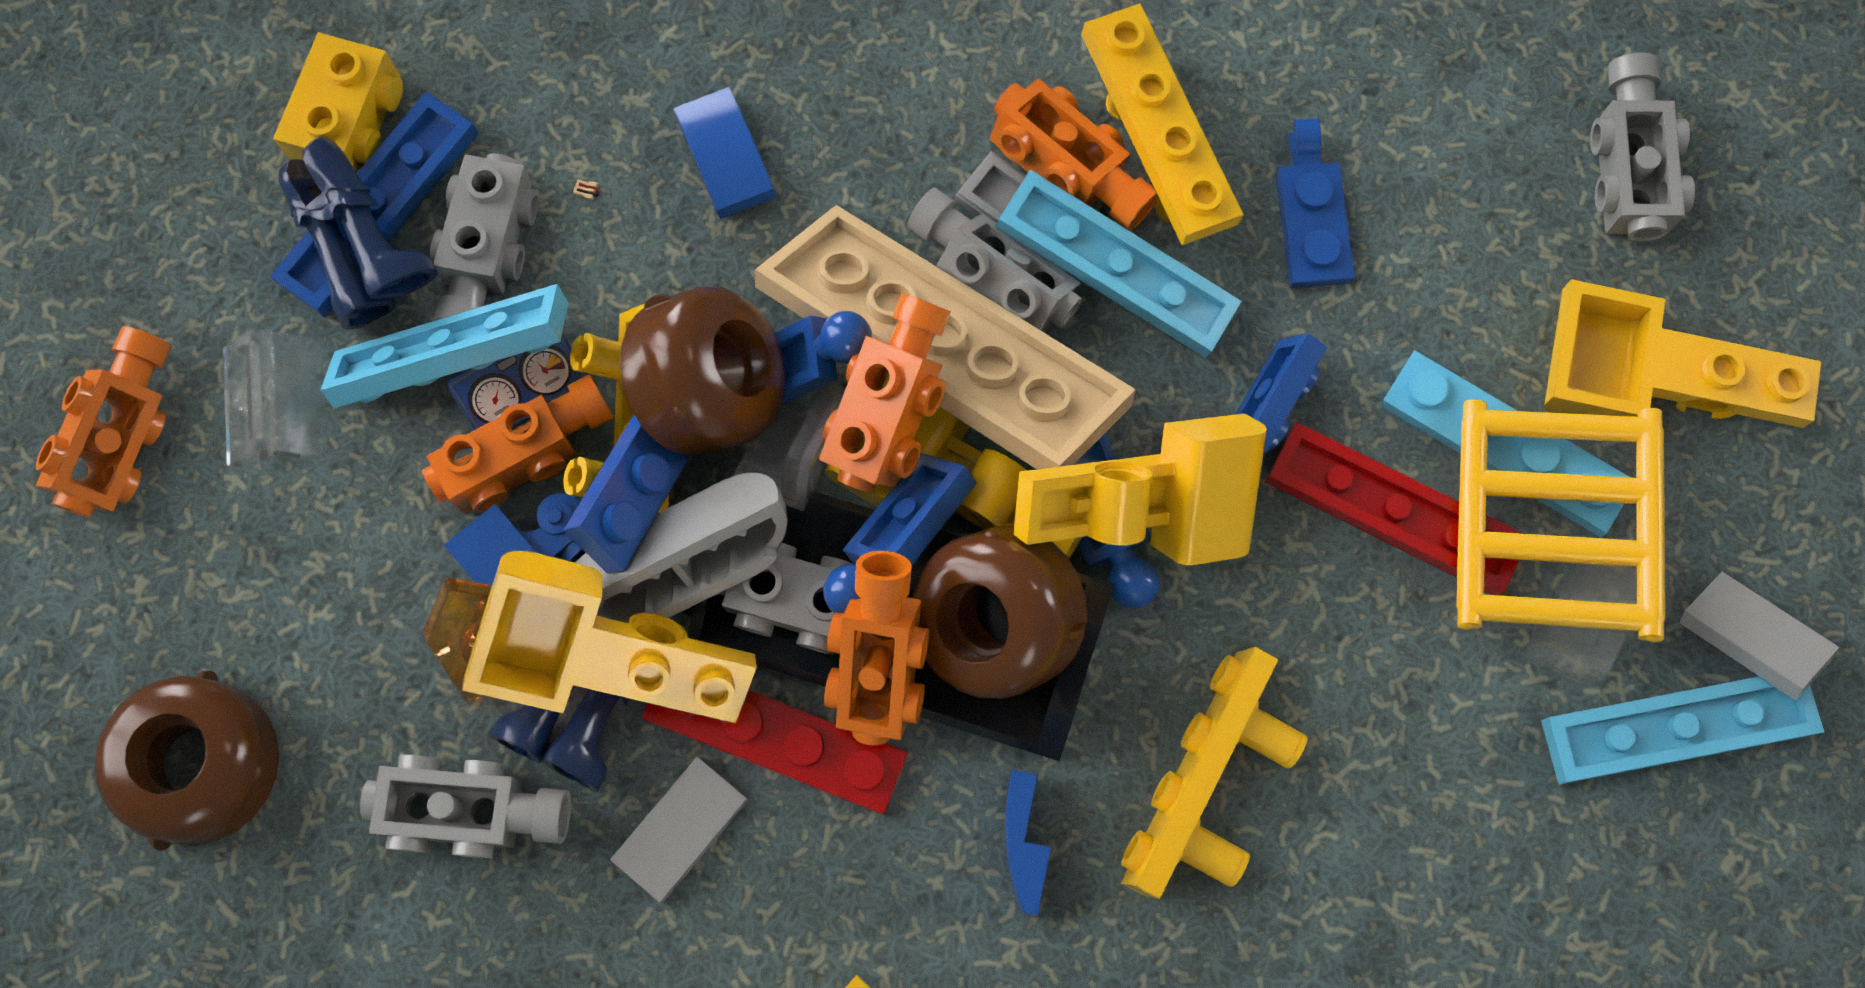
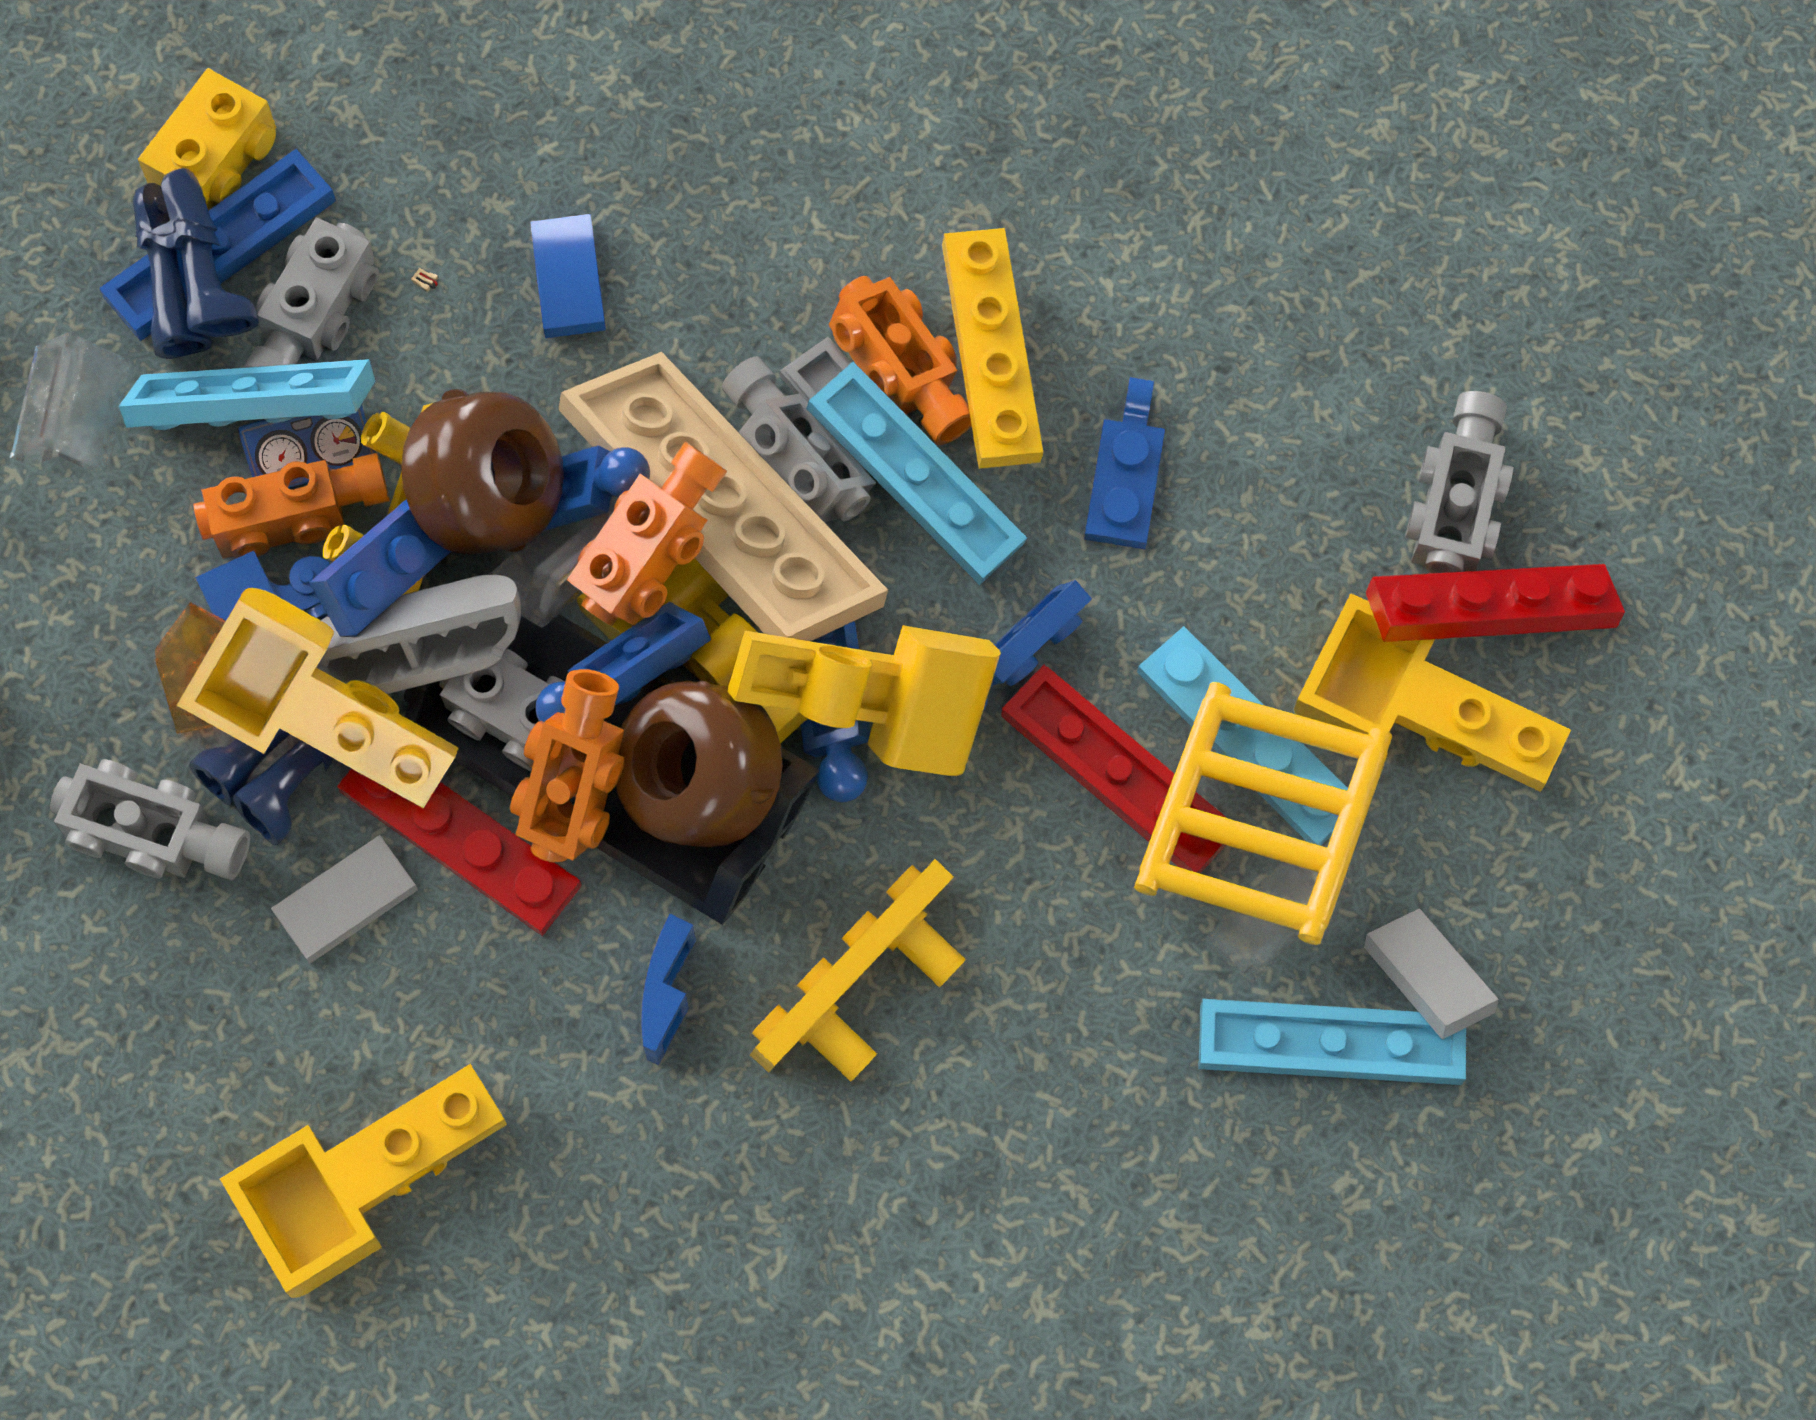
camera: 10 degrees right, 5 degrees down
(1705, 255) = (1494, 602): none -> red plate

